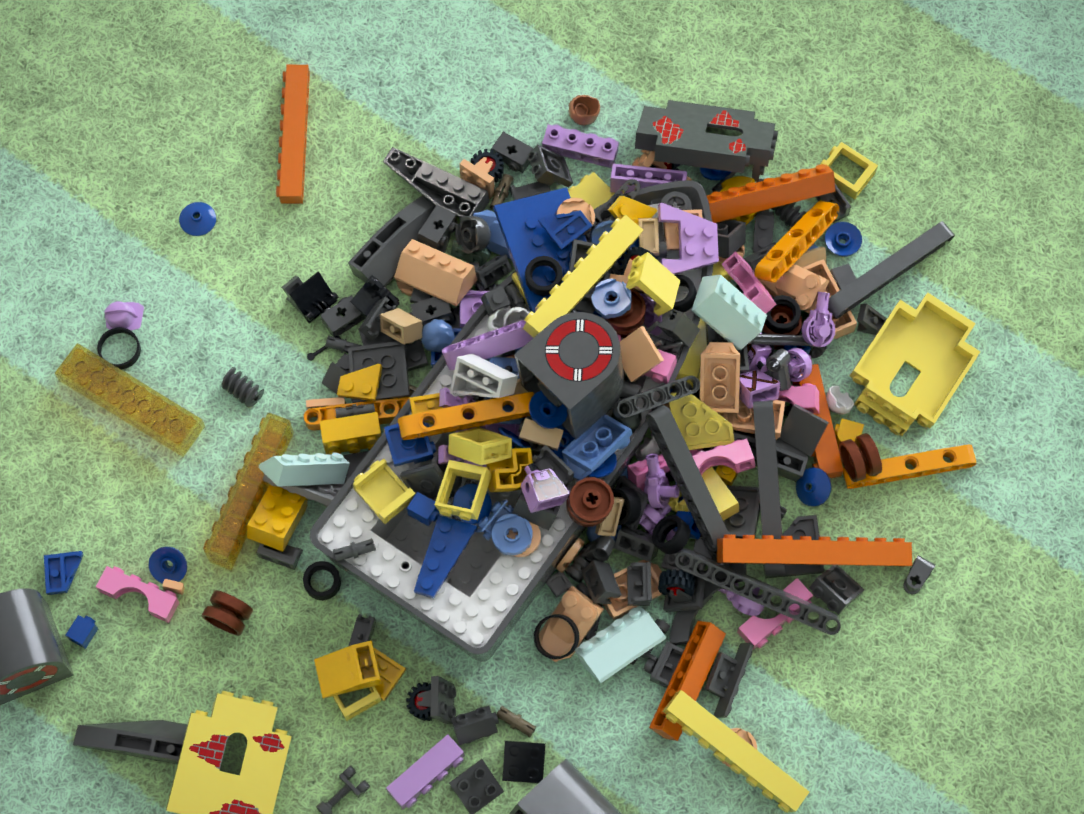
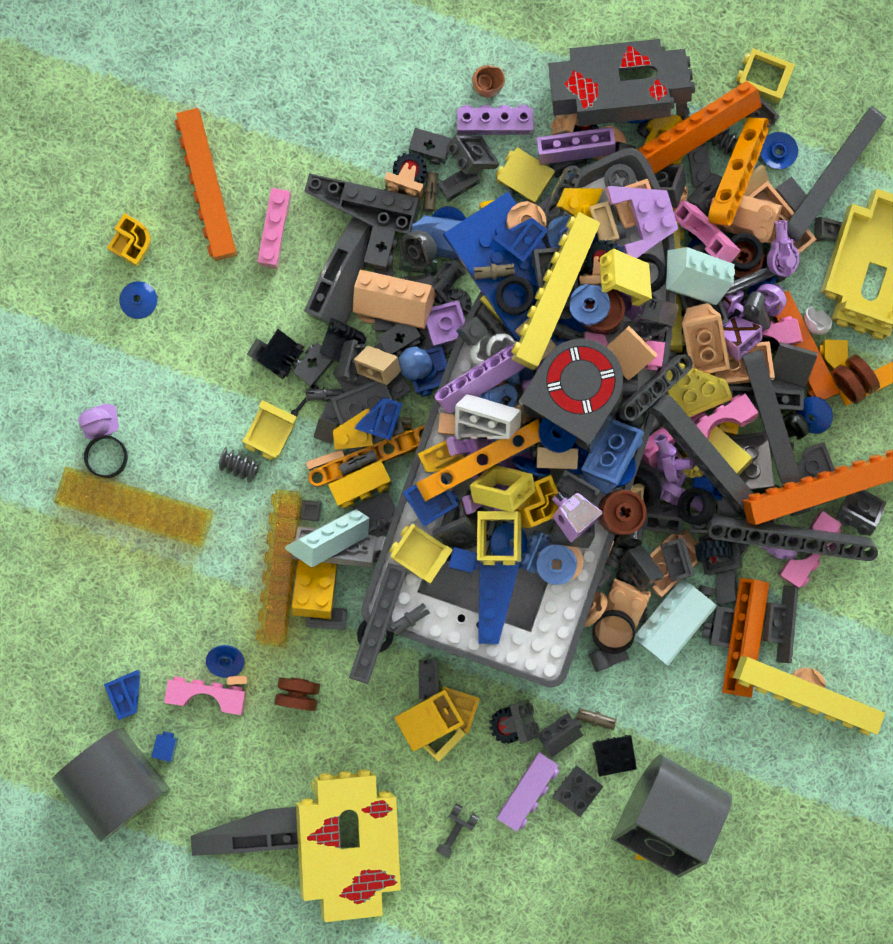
camera: 15 degrees left, 15 degrees up
(208, 162) = (130, 241): none -> yellow brick
(282, 365) = (269, 431): none -> light yellow panel
(296, 447) = (310, 510): none -> dark grey tile
(322, 546) = (378, 623): none -> dark grey tile
(338, 195) = (273, 228): none -> bright pink arch
(389, 375) = (381, 419): none -> blue wing
(444, 379) = (446, 424): none -> light nougat tile
(530, 249) = (494, 271): none -> dark tan pin
(541, 610) = (597, 608): none -> light nougat tile
(541, 665) = (603, 660): none -> dark grey panel
(791, 491) = (796, 425): none -> pearl dark grey hair

